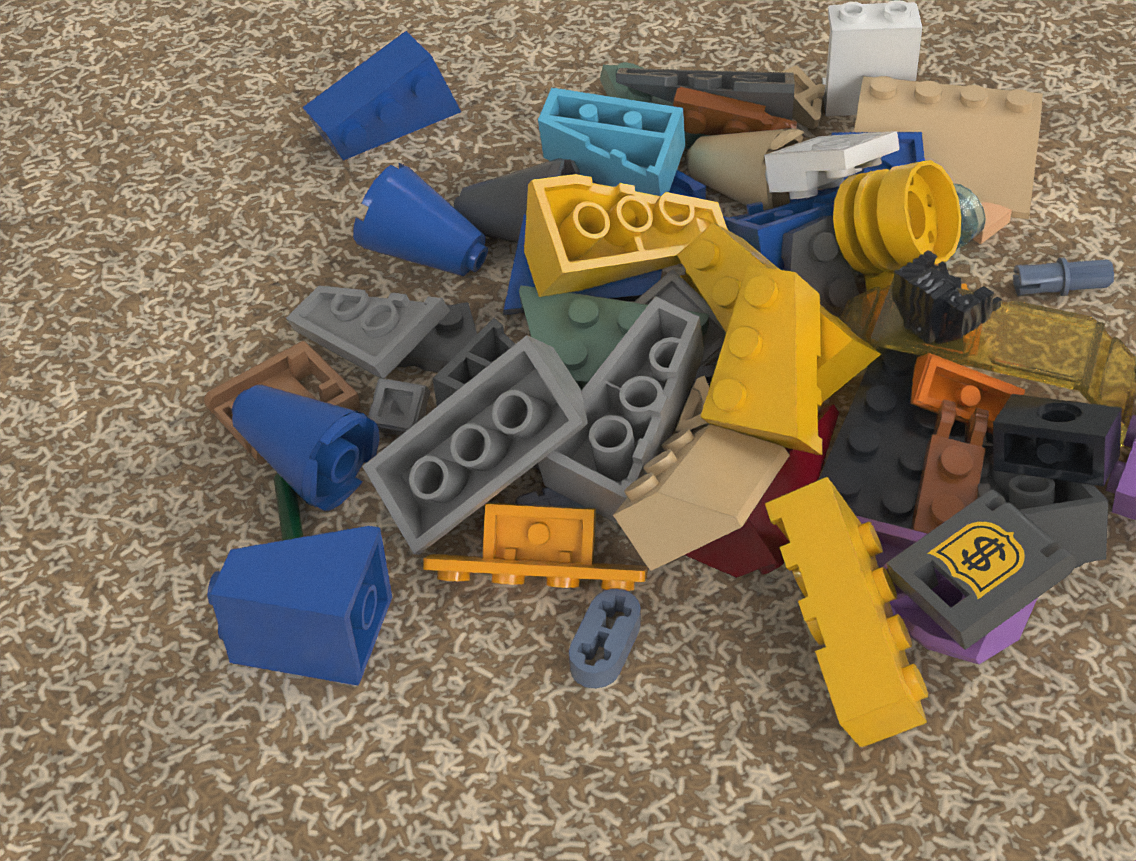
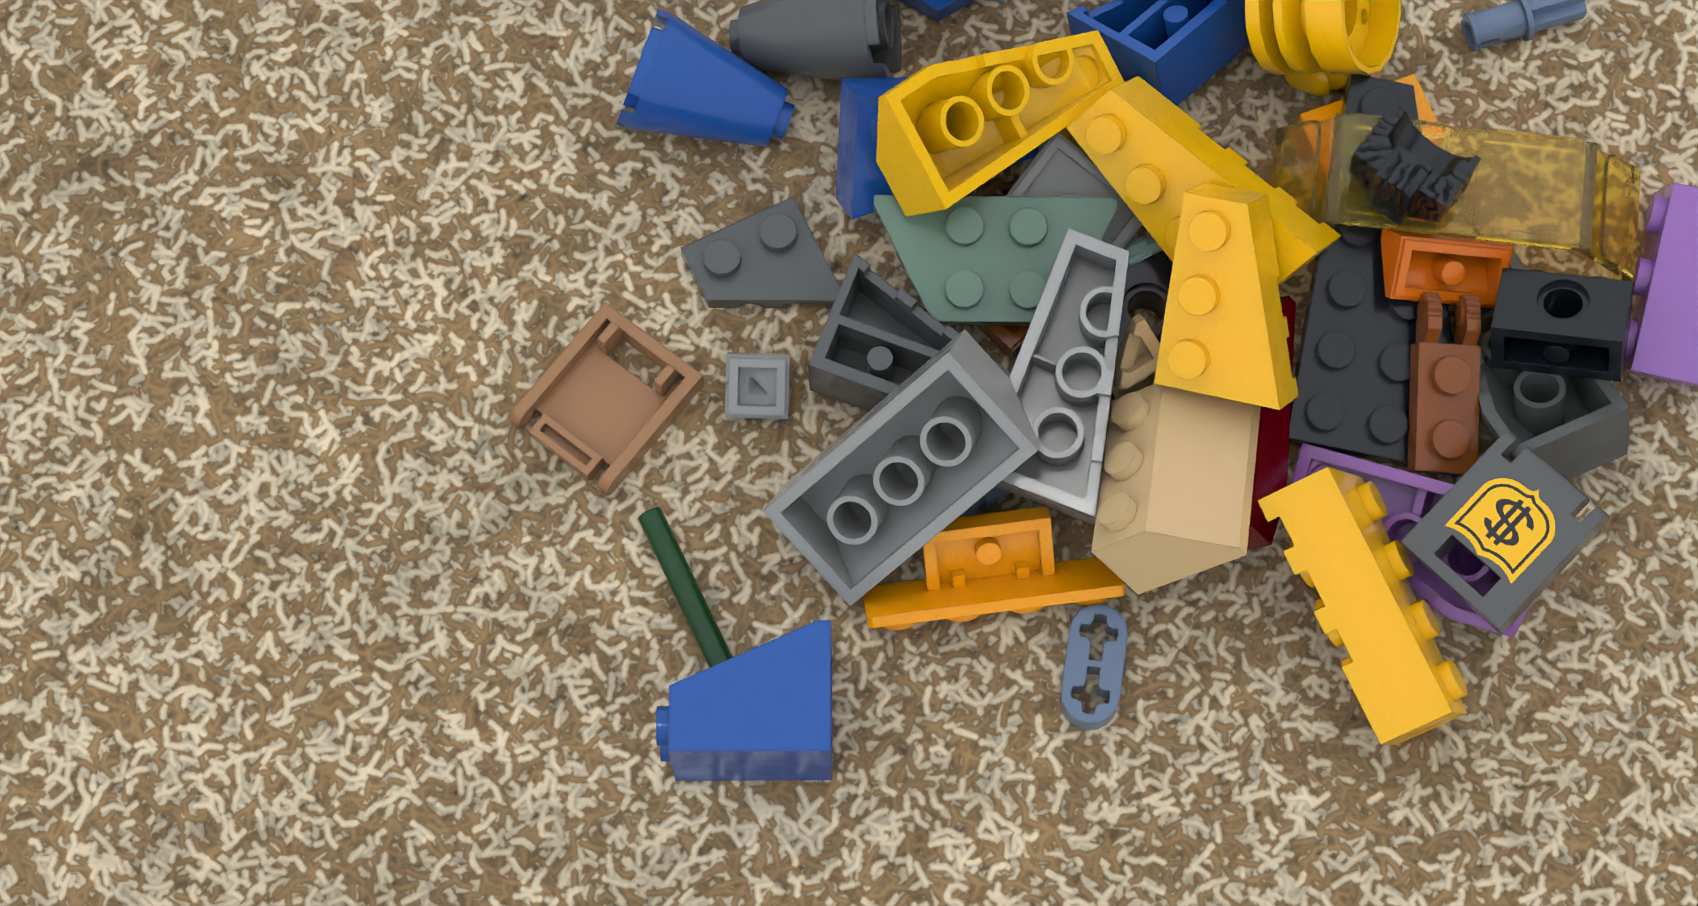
camera: 15 degrees left, 25 degrees up
(307, 442) = (670, 476): blue cone -> none
(364, 328) = (682, 273): light grey wing -> none
(817, 259) = (1228, 86): dark grey wing -> none

